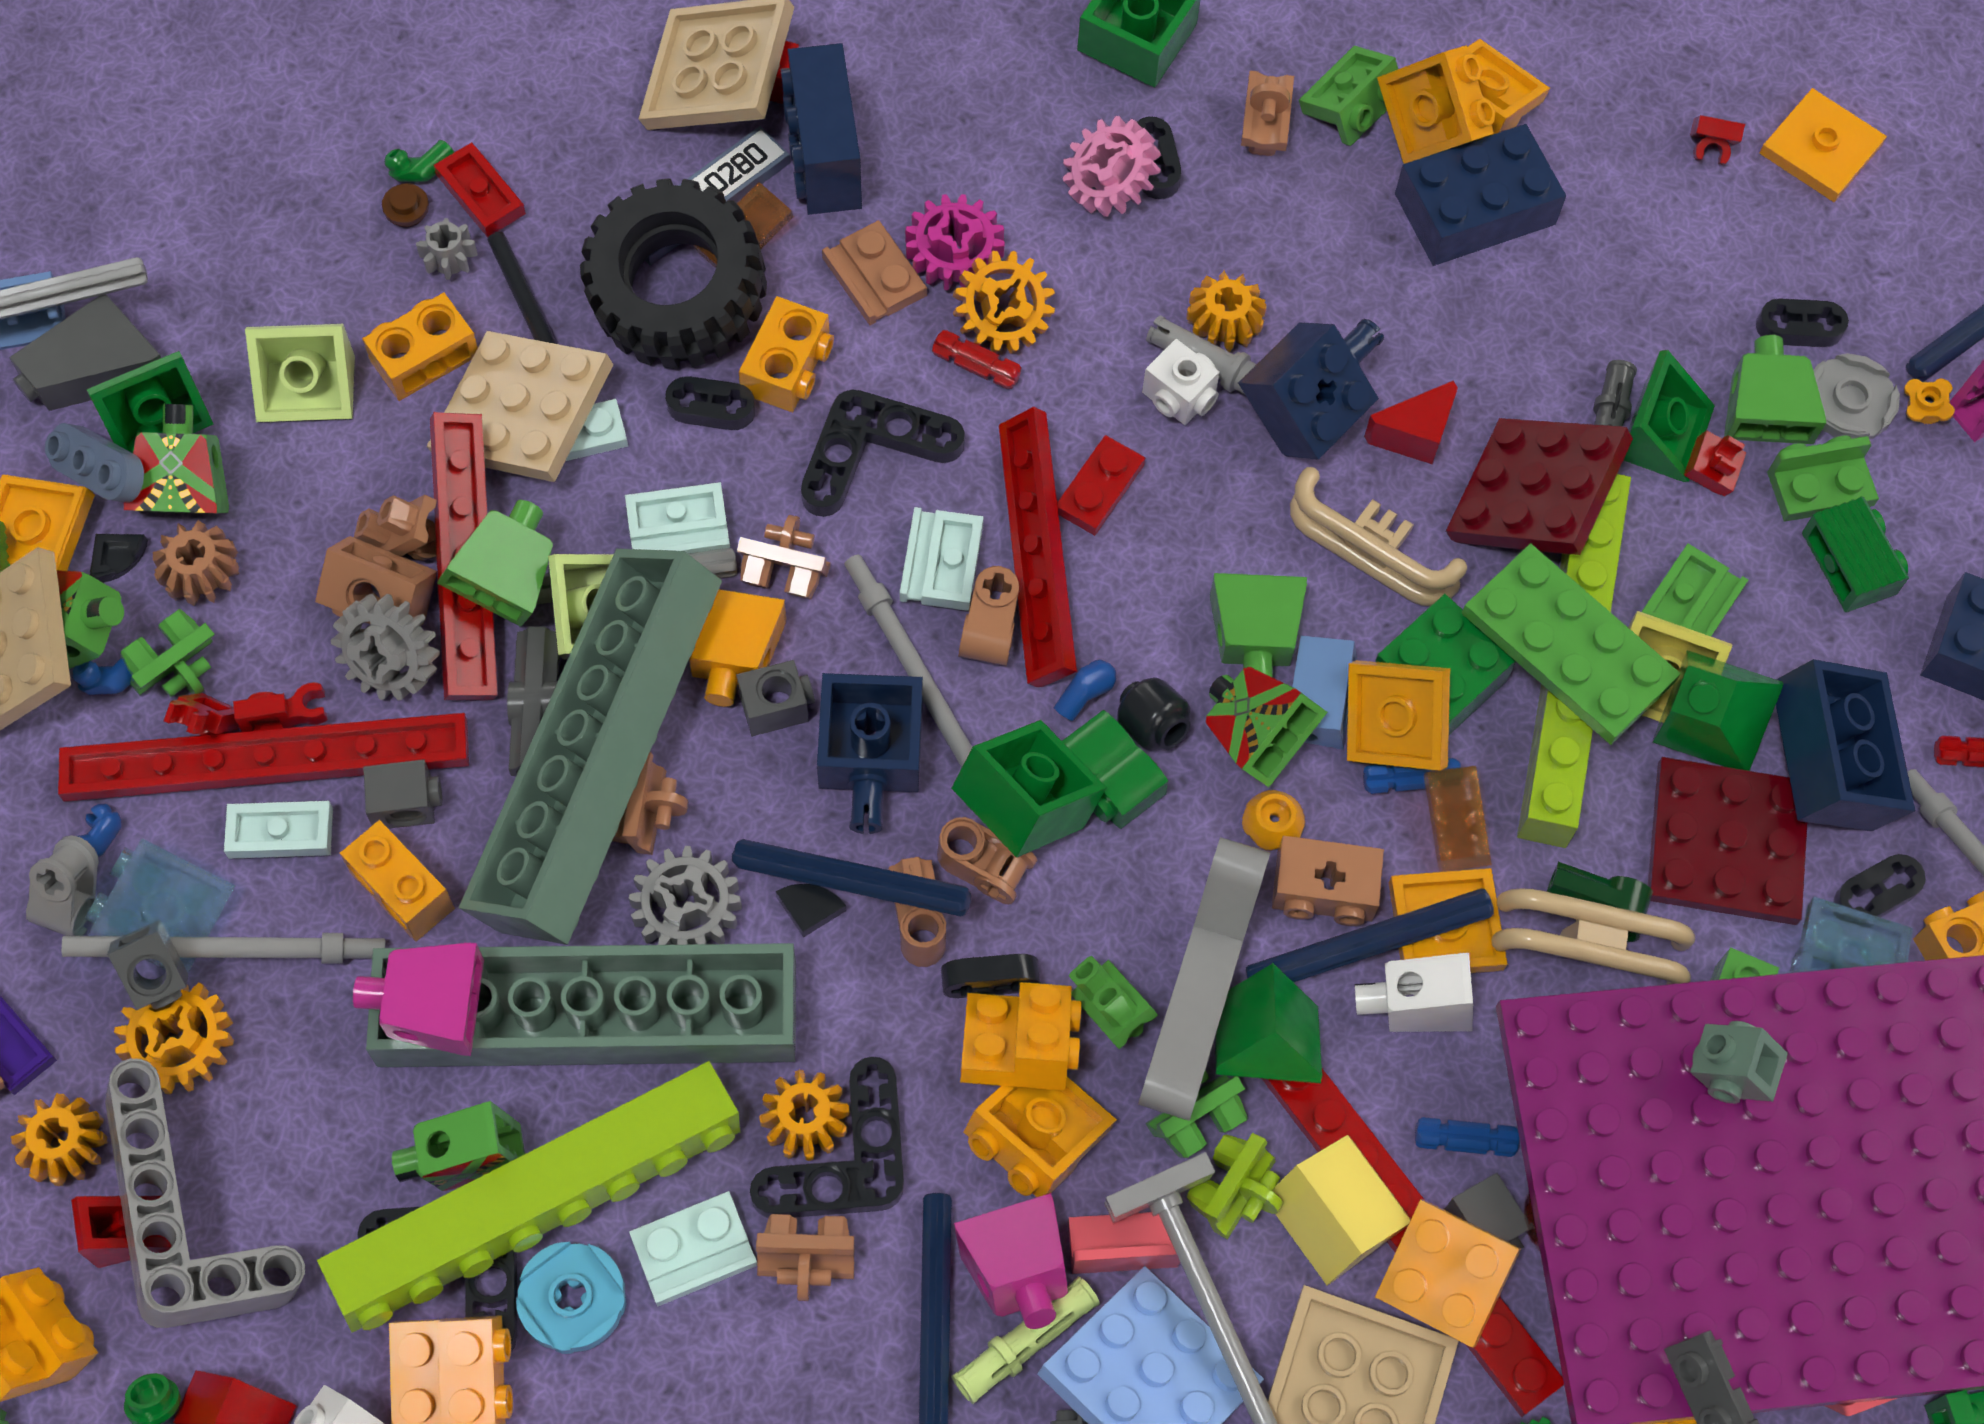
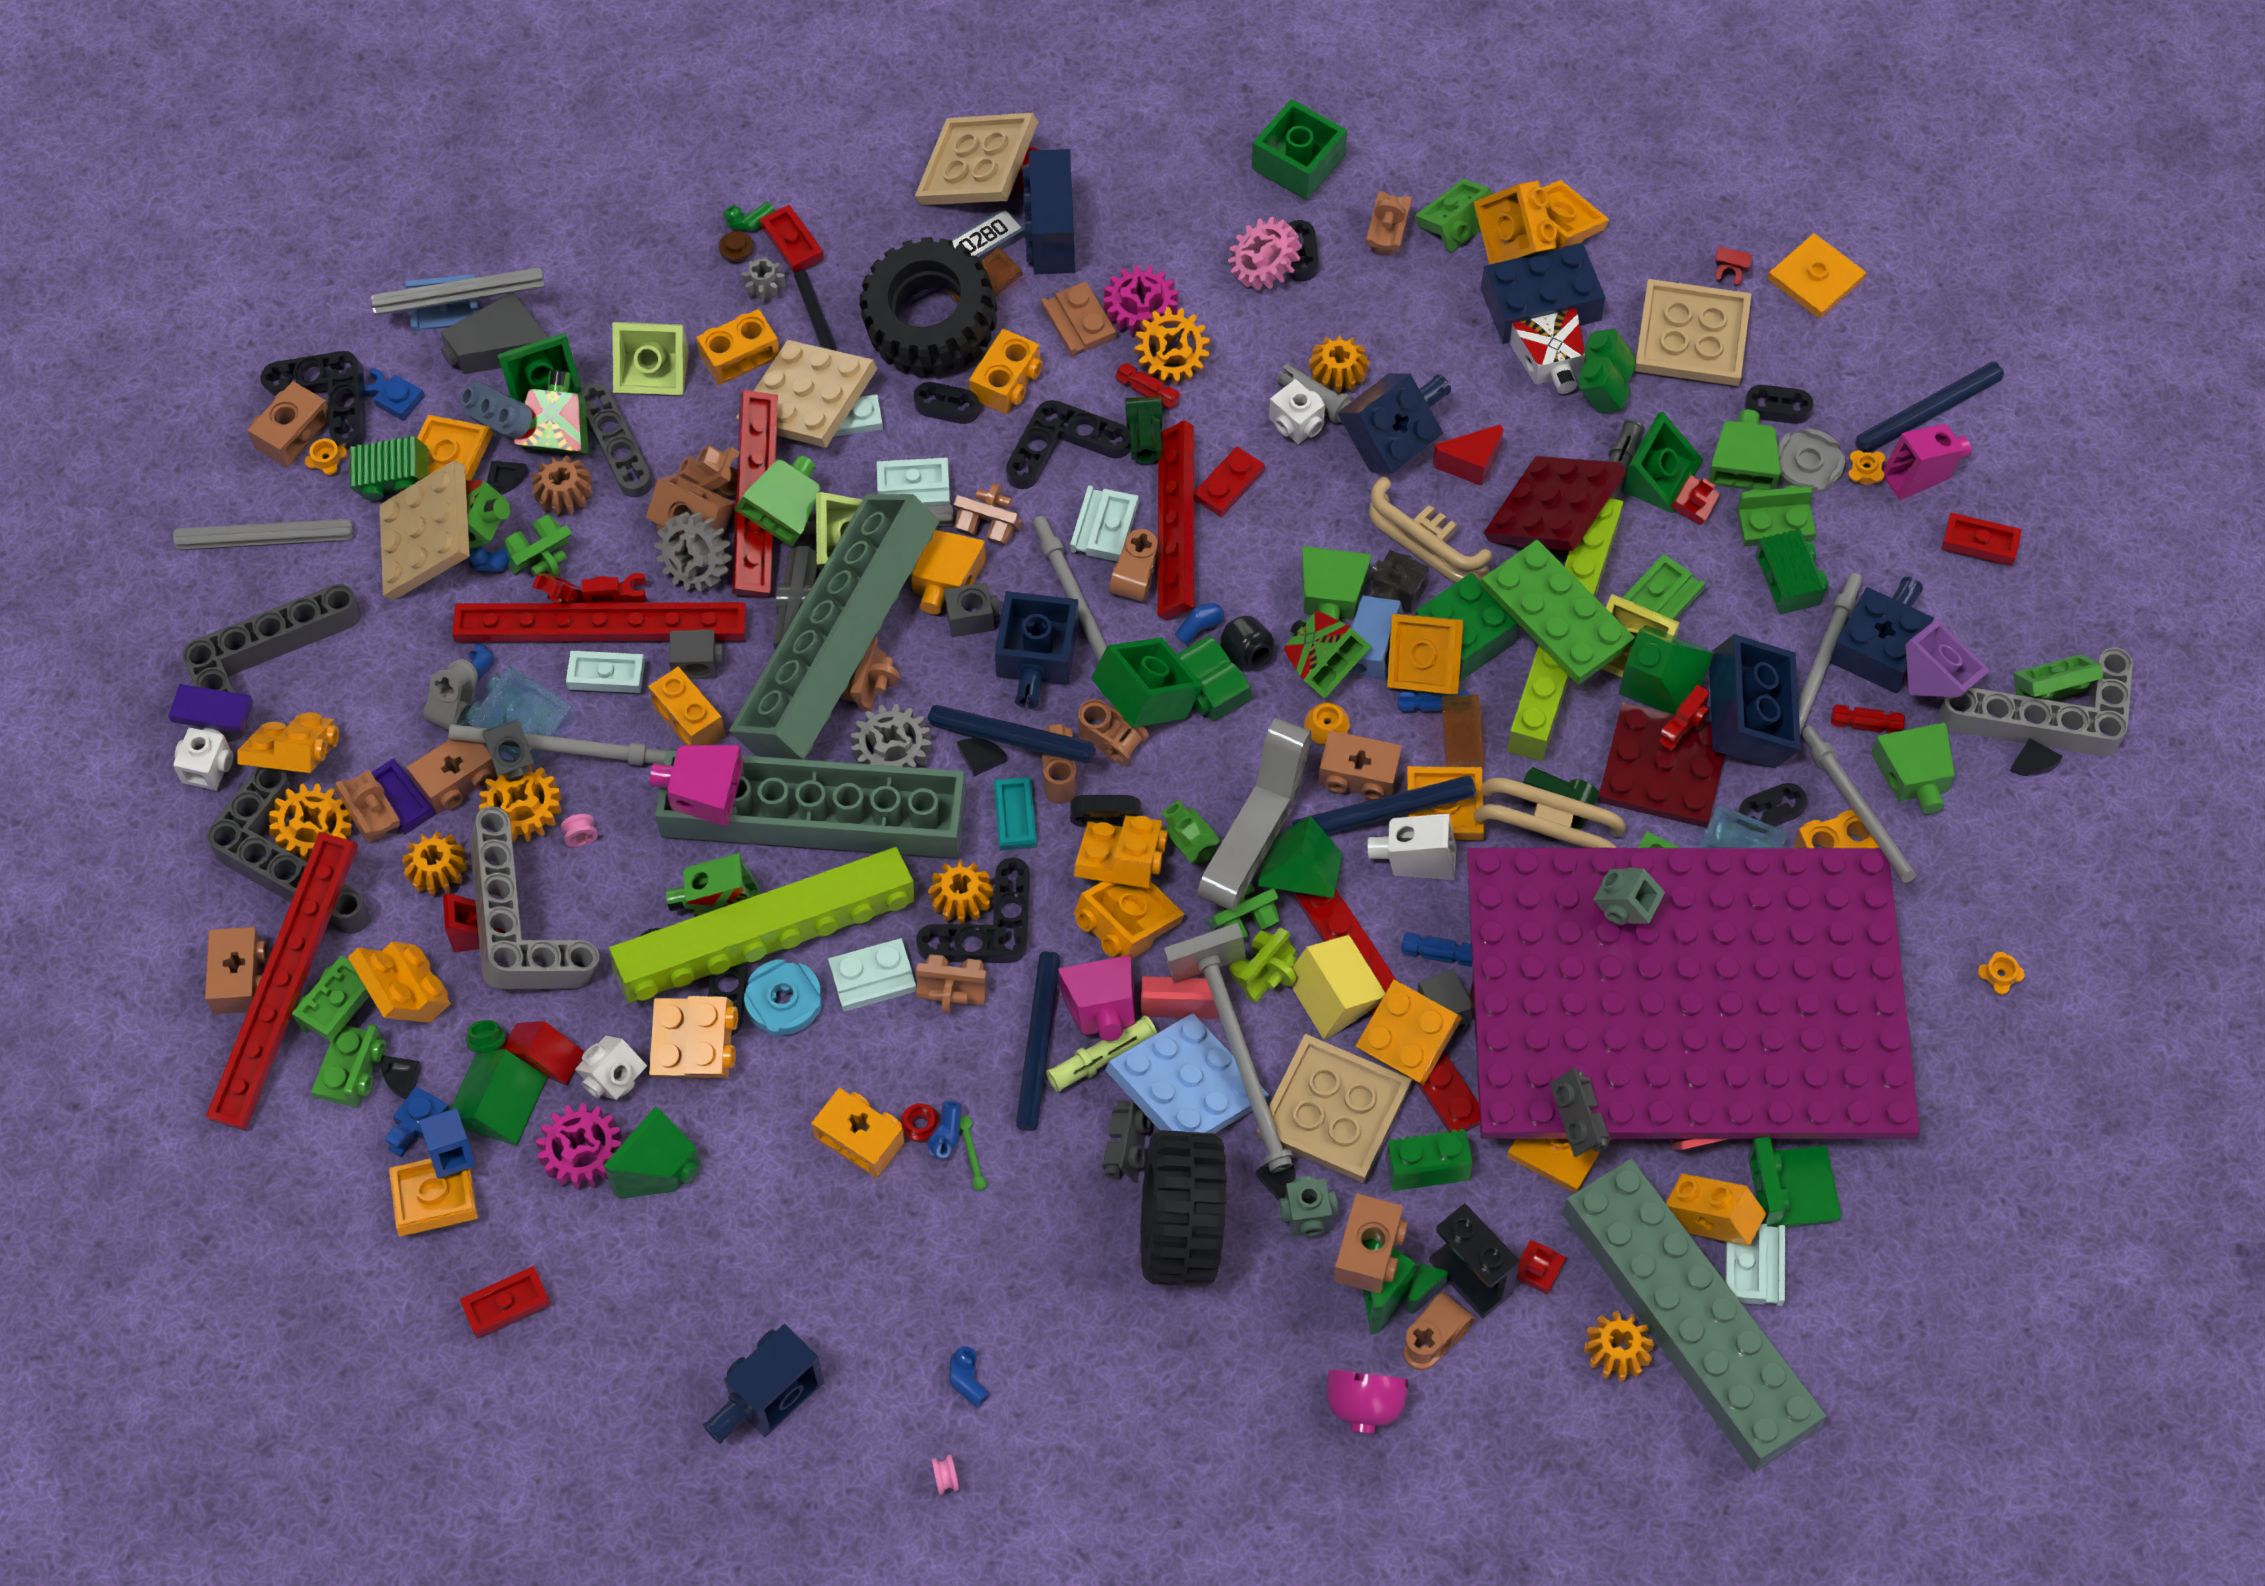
camera: 10 degrees right, 5 degrees down
(48, 1005) = (436, 778): none -> nougat brick
(261, 1070) = (579, 830): none -> bright pink bush
(266, 489) = (614, 440): none -> dark grey beam
(866, 988) = (1015, 813): none -> teal tile
(980, 412) = (1144, 423): none -> dark green piece
(1346, 608) = (1399, 579): none -> clear smoke brick
(1500, 270) = (1550, 348): none -> white torso
(1579, 295) = (1607, 370): none -> green brick
(1679, 233) = (1693, 332): none -> tan plate
(1763, 770) = (1690, 713): none -> red plate
(1929, 599) = (1842, 609): none -> light grey bar

